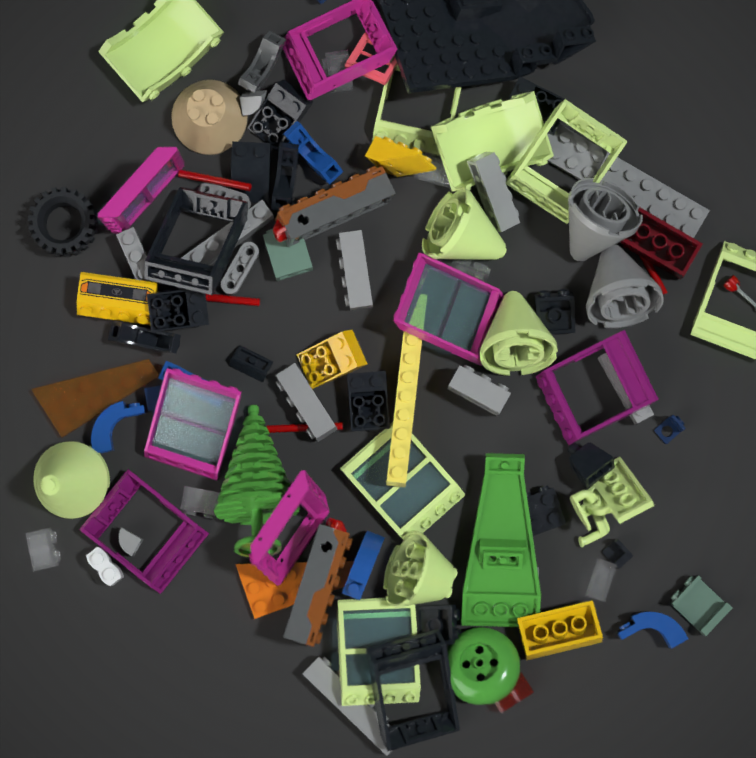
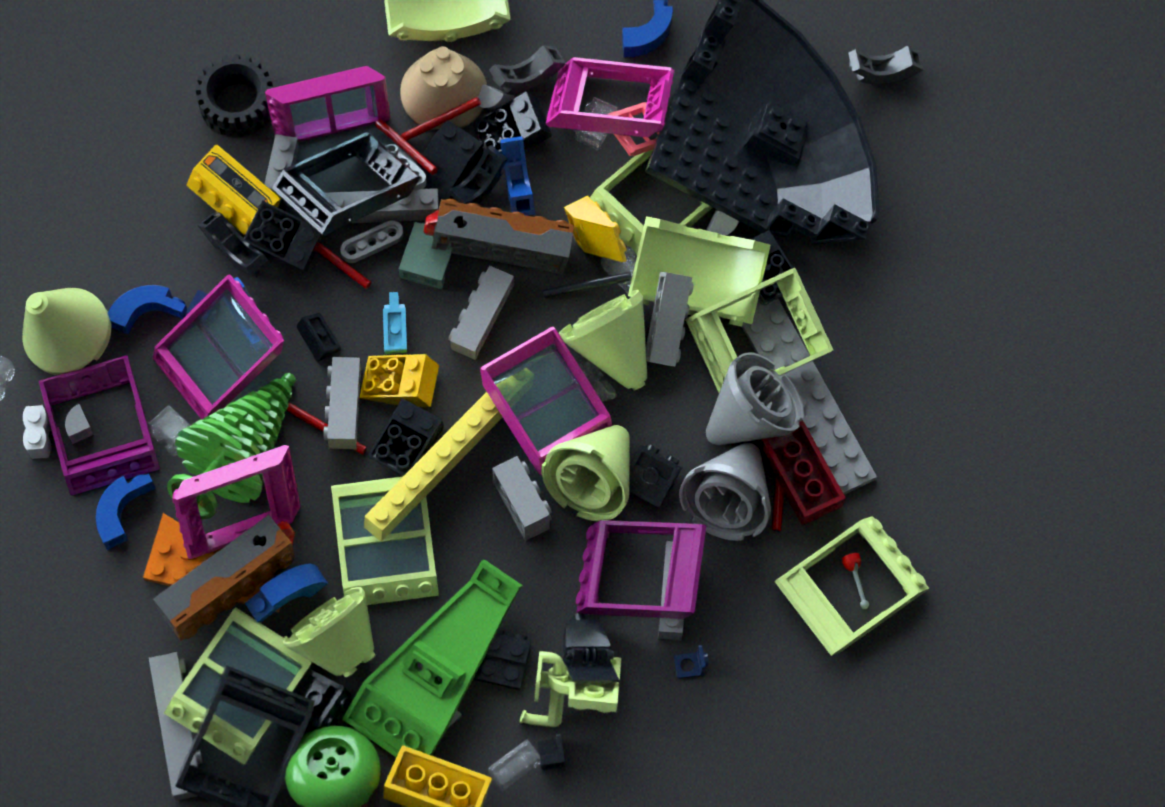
camera: 30 degrees right, 15 degrees down
(85, 397) = (125, 264): clear orange wing -> none
(196, 585) = (112, 504): none -> blue arch
(226, 143) = (441, 119): none -> red piece
(300, 320) = (394, 326): none -> medium azure hinge
(416, 201) = (589, 284): none -> black bar
(480, 94) = (722, 223): none -> light grey brick
(611, 482) = (593, 669): none -> black hinge

